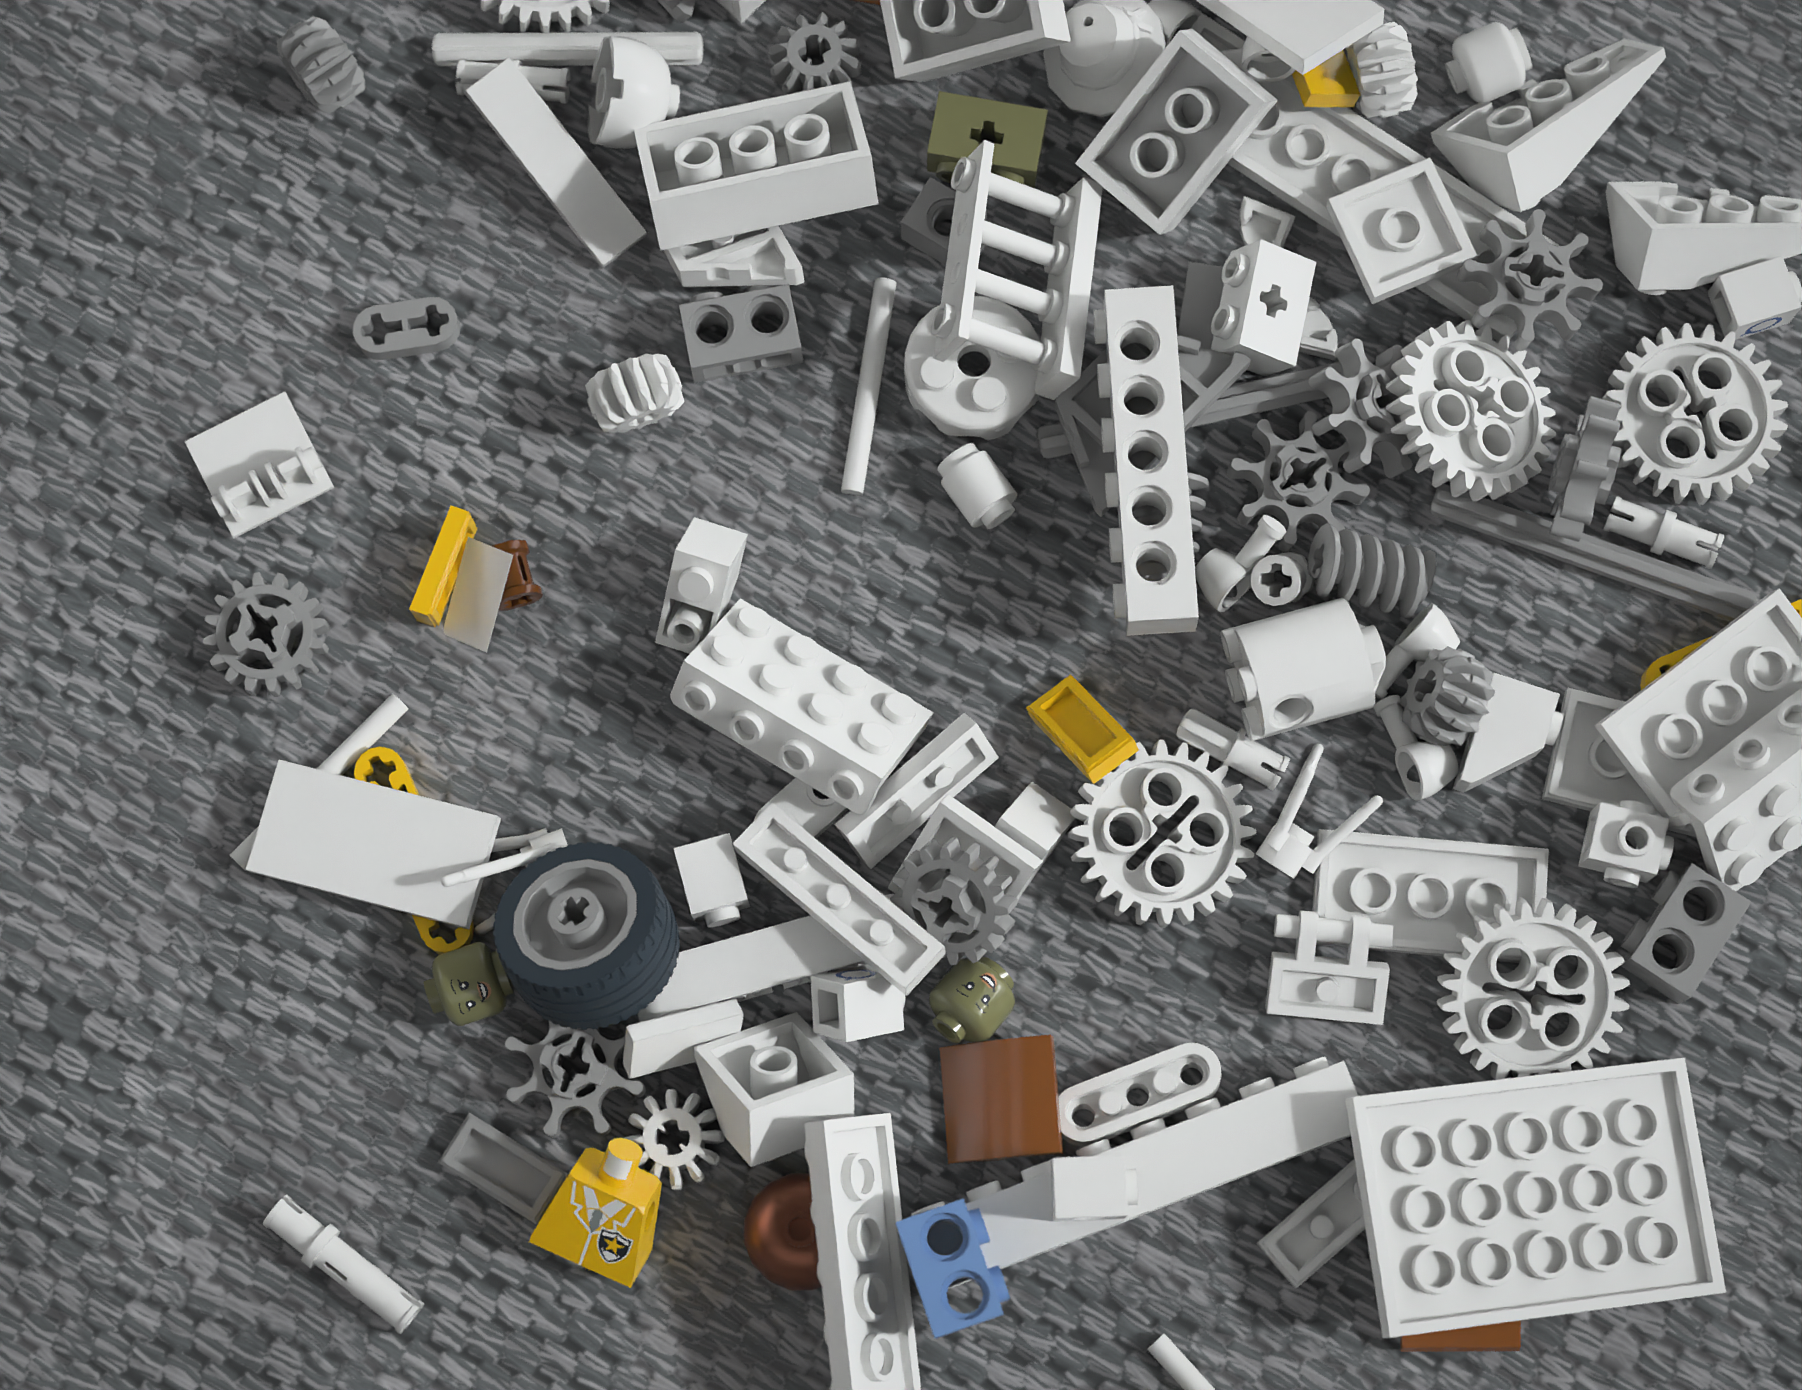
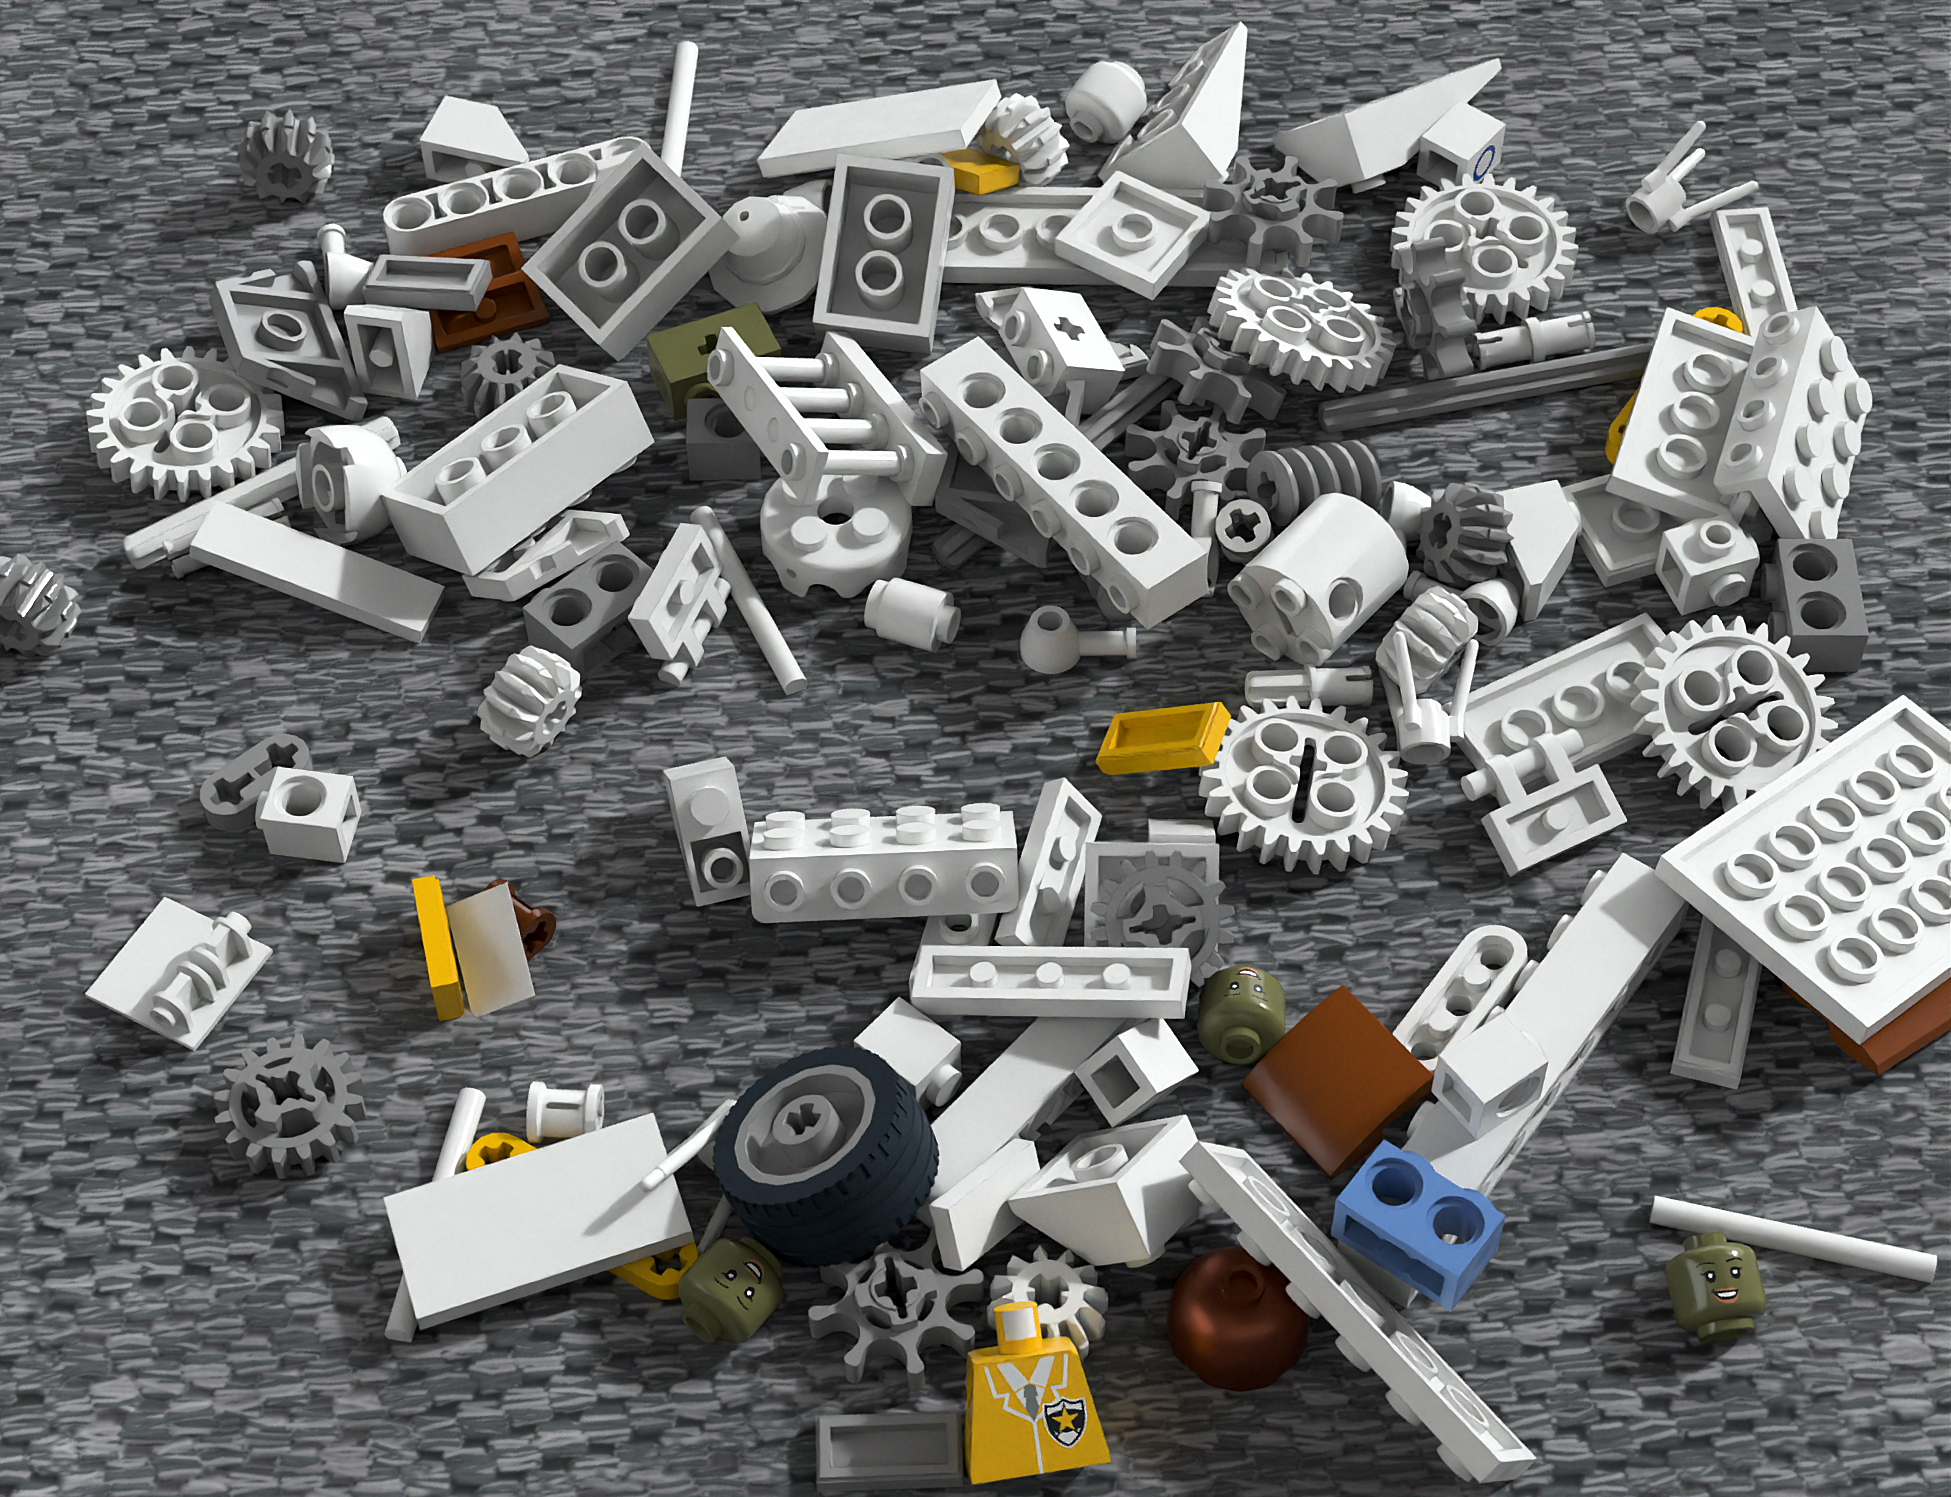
camera: 35 degrees left, 25 degrees down
(431, 759) = (563, 1112): none -> white bush
(433, 408) = (309, 814): none -> white brick
(800, 374) = (681, 602): none -> white plate
(1080, 589) = (1062, 647): none -> white bar
(1347, 774) = (1435, 635): none -> white gear

